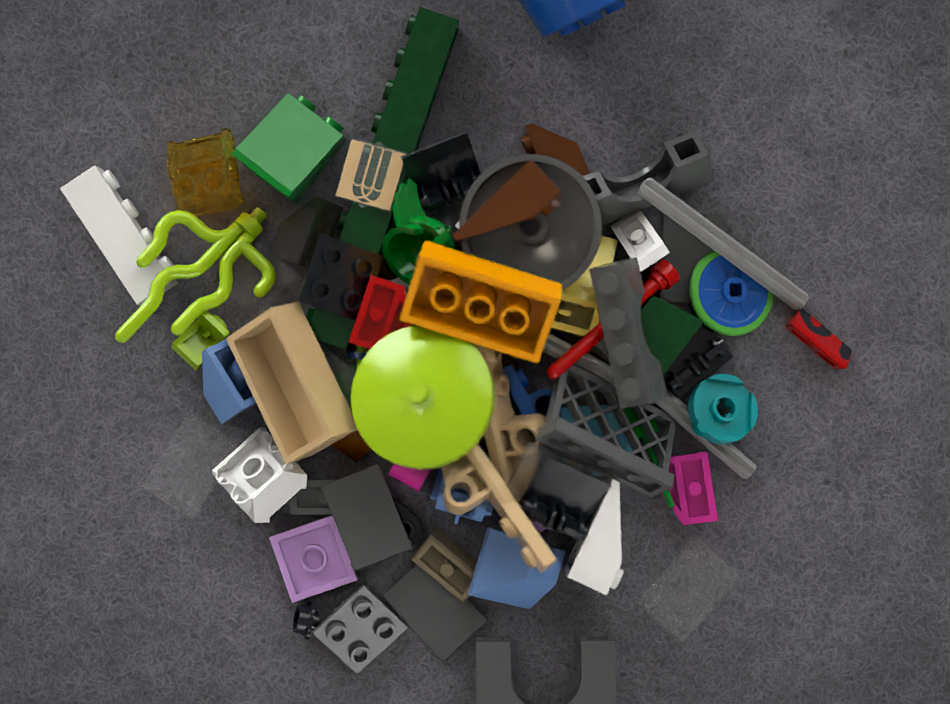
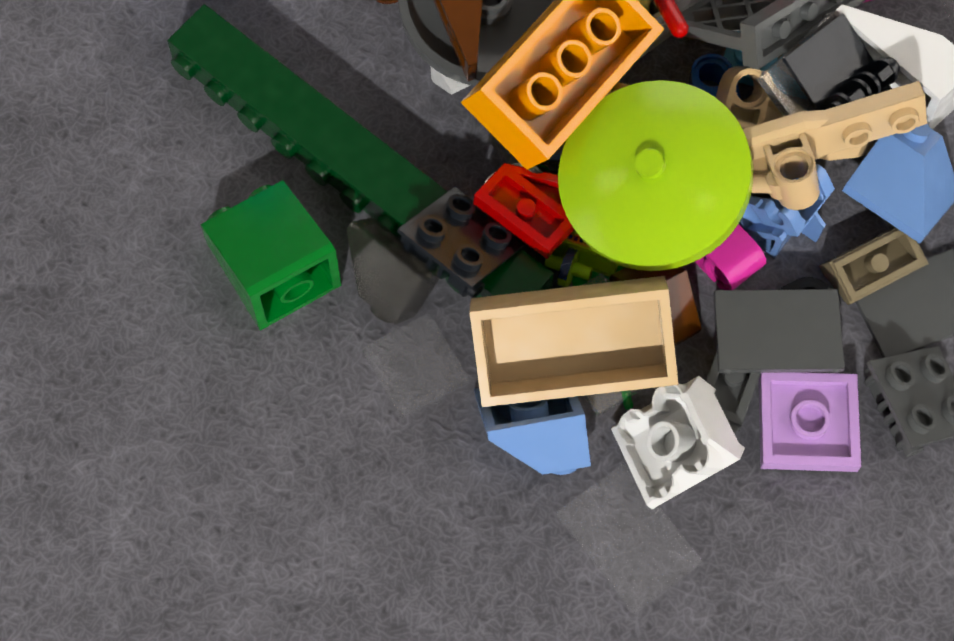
camera: 70 degrees left, 20 degrees down
(115, 229) = (286, 506): white brick -> none
(199, 336) = (467, 452): lime bracket -> none
(205, 174) = (255, 353): clear yellow slope -> none
(232, 240) = (356, 368): lime plant -> none
(305, 619) = (889, 459): black plate -> none
(370, 175) = (347, 163): piece -> none
(403, 244) = (454, 140): green helmet -> none
(442, 170) = (380, 87): black hinge -> none

